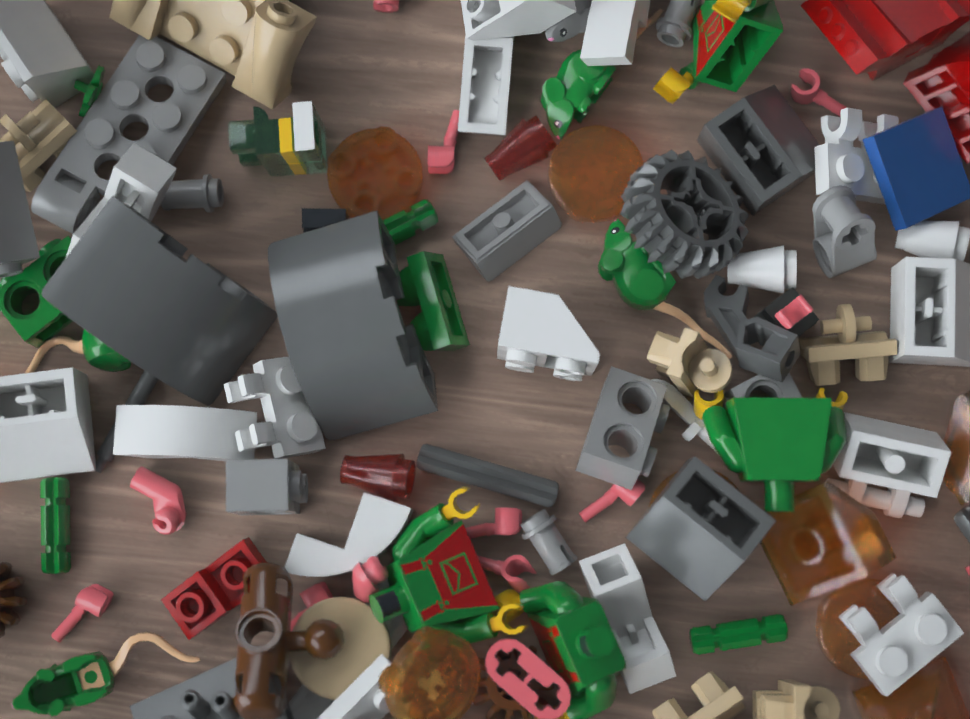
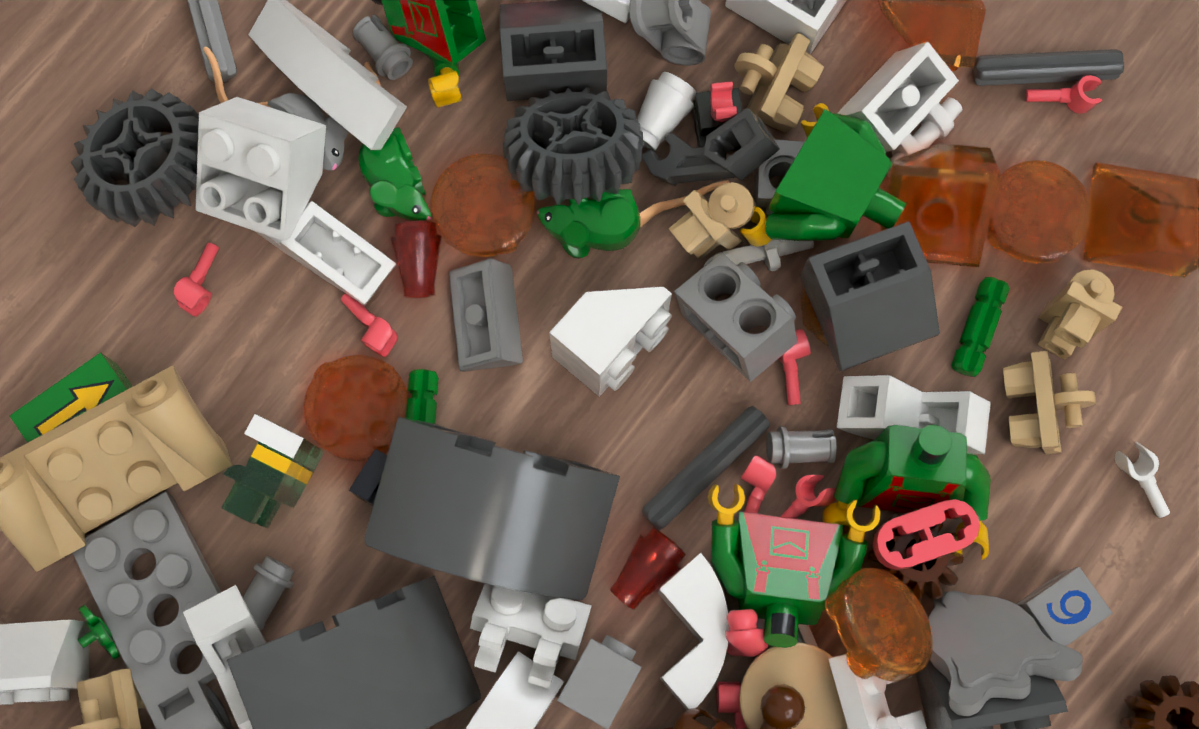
camera: 60 degrees left, 5 degrees down
(429, 285) = (494, 416): green tile -> none
(905, 642) = (1071, 183): white plate -> none

